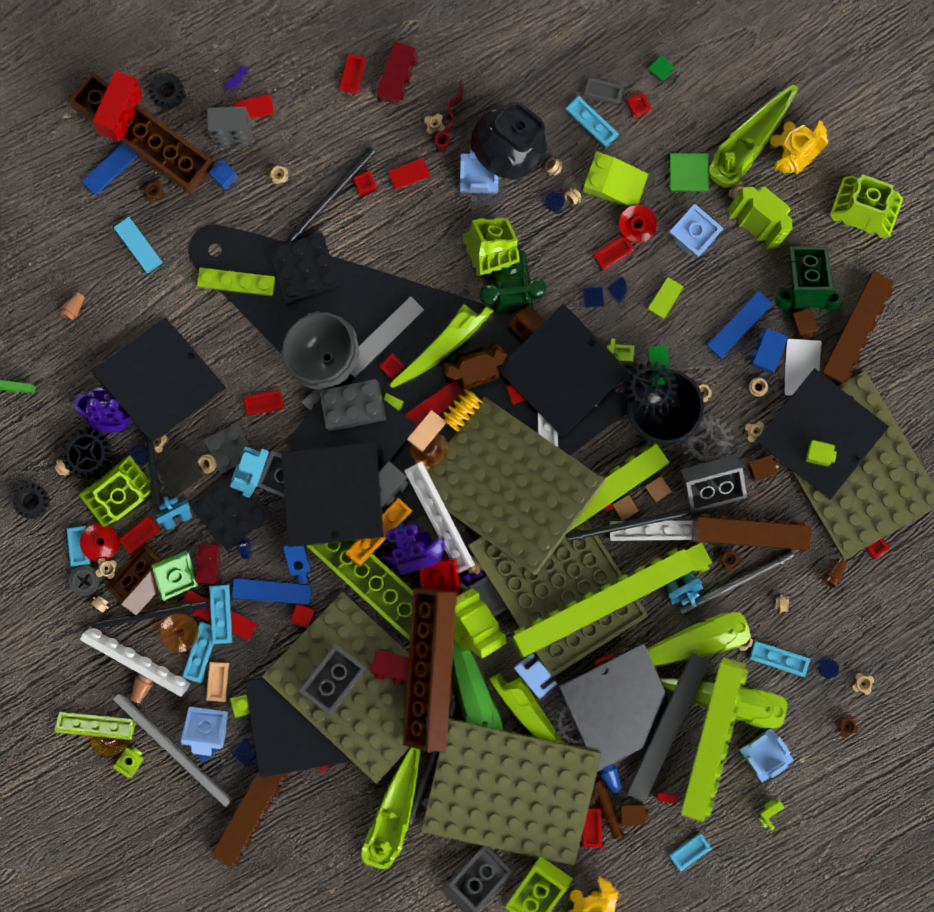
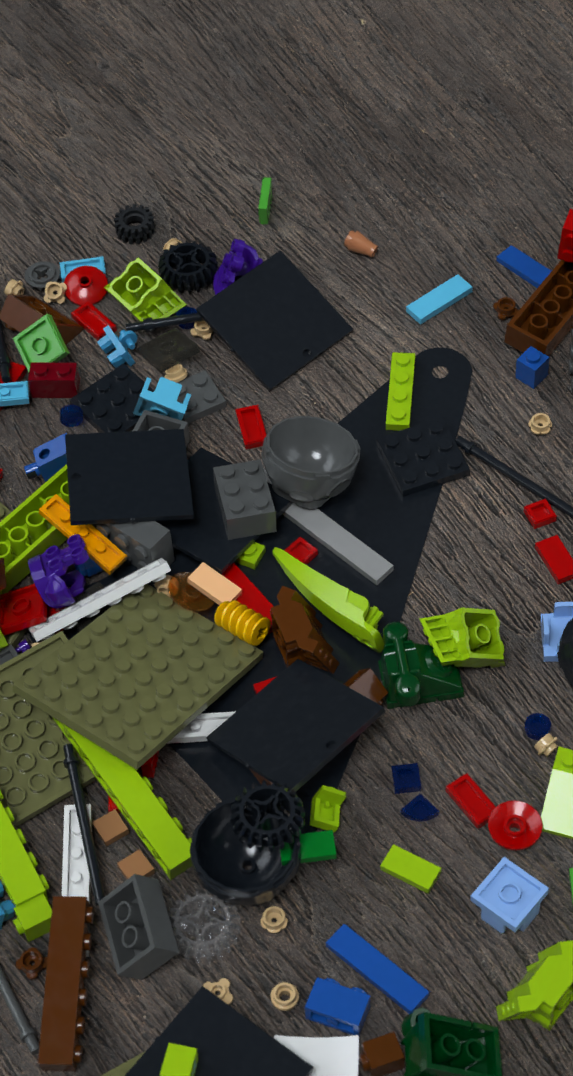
camera: 90 degrees right, 30 degrees down
(271, 591) = (19, 446): blue tile -> none
(763, 468) = (161, 1001): reddish brown brick -> none

